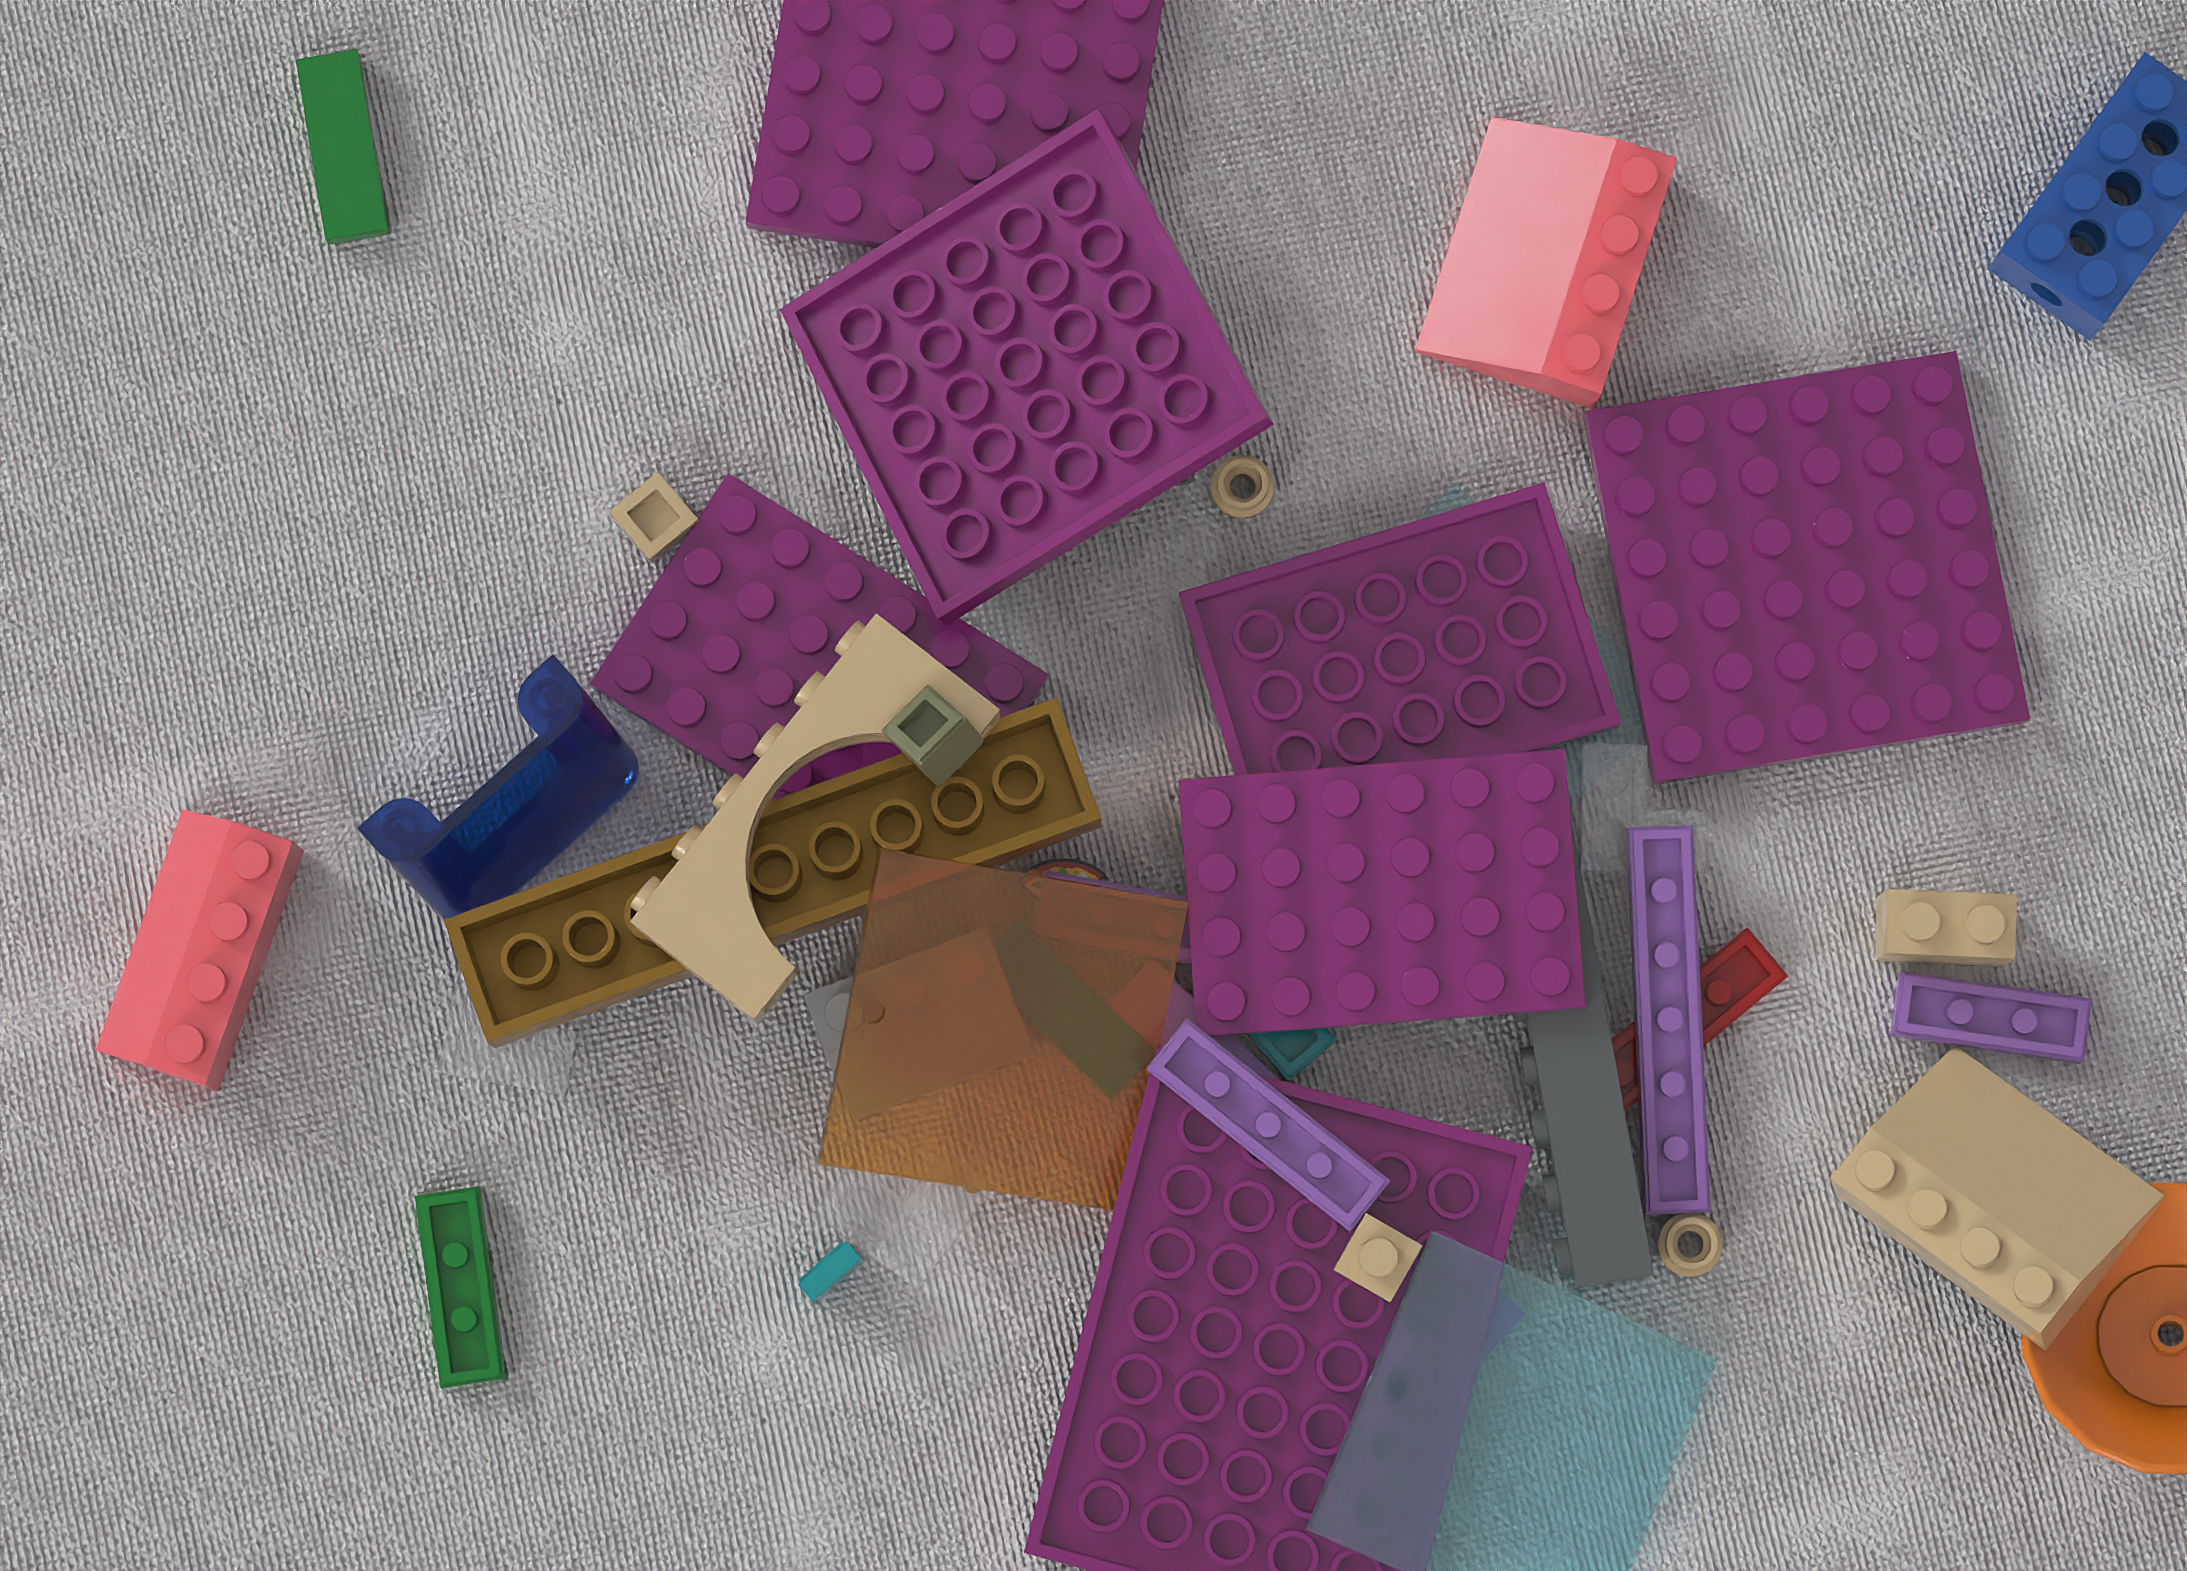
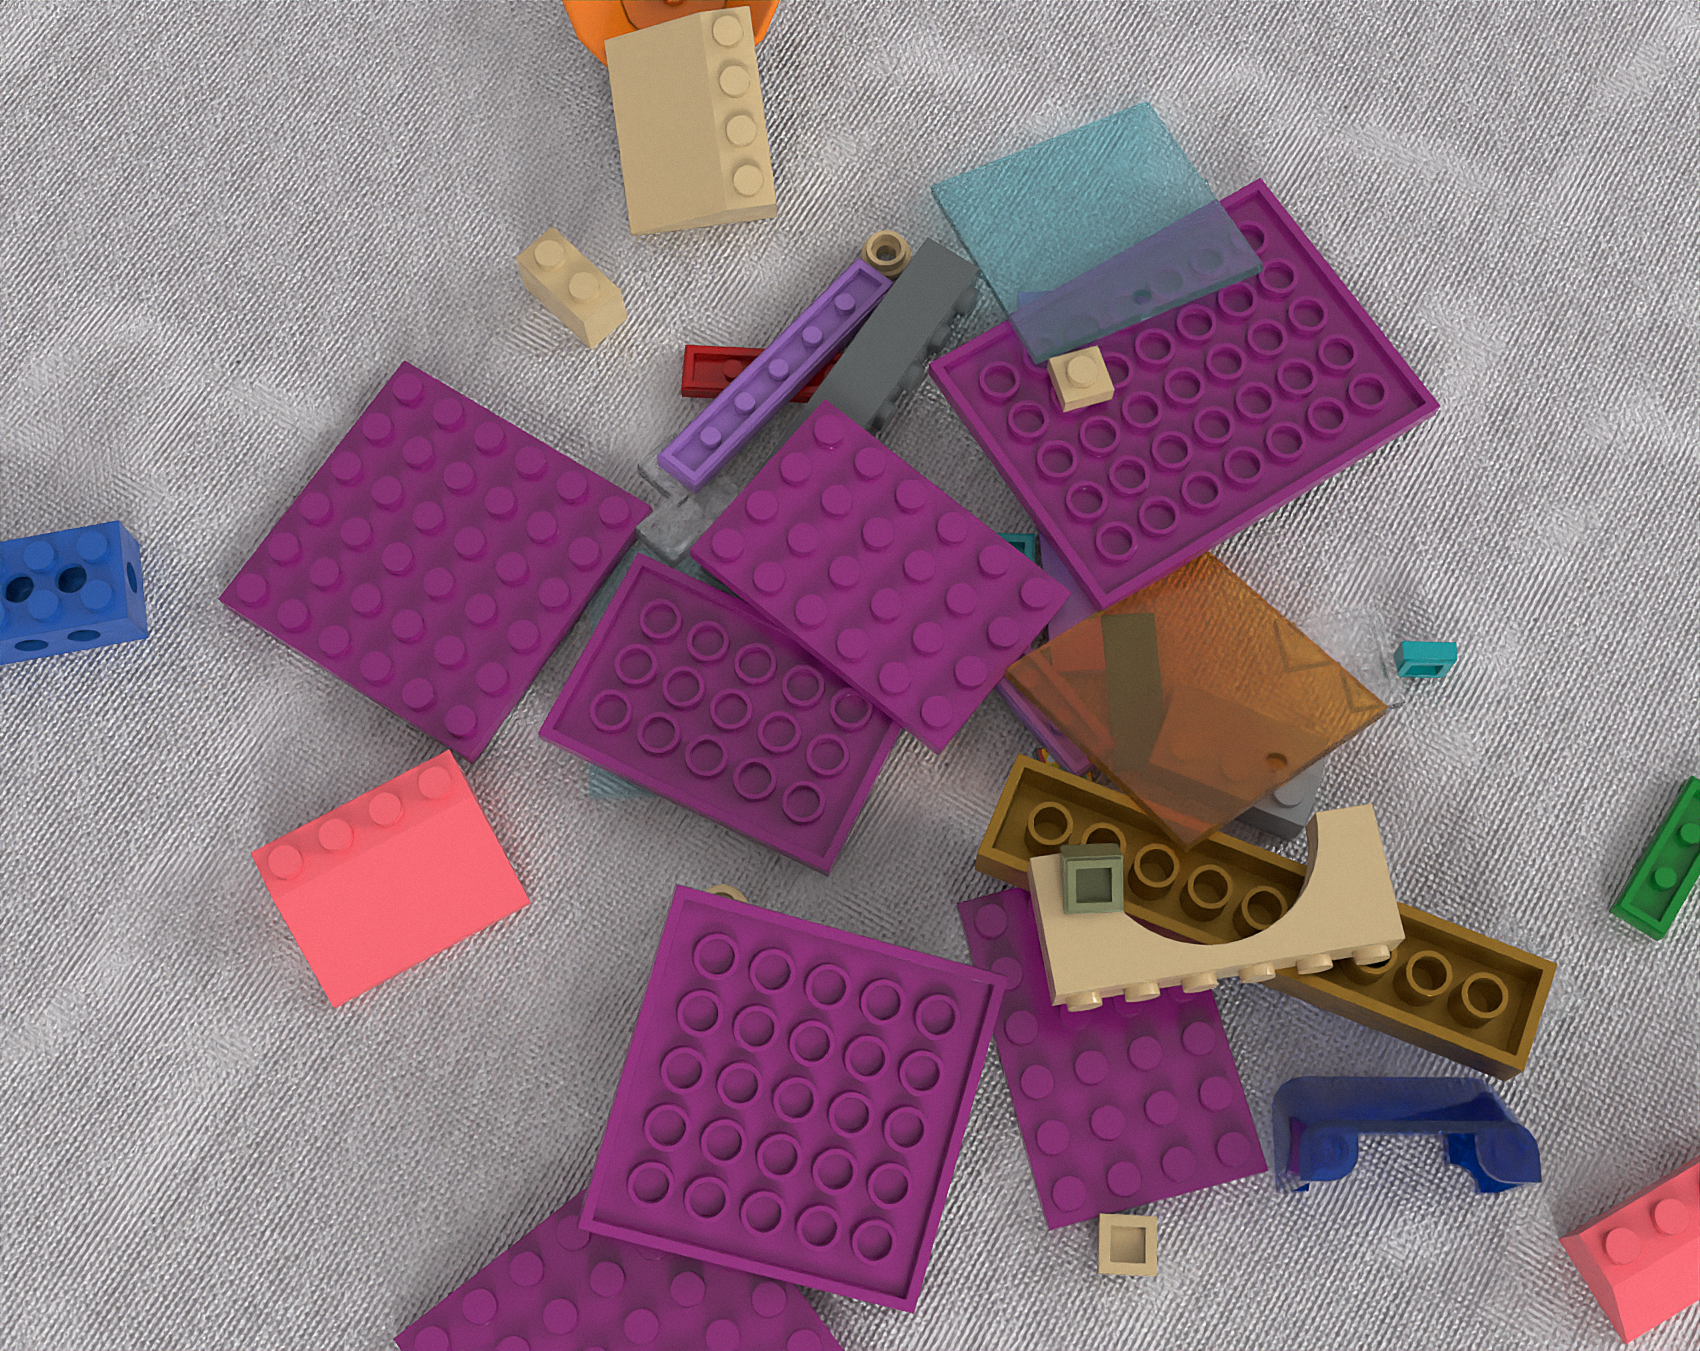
camera: 135 degrees left, 10 degrees down
(1268, 1125) = (1077, 505): medium lavender tile -> none
(1990, 1017) = (596, 230): medium lavender tile -> none

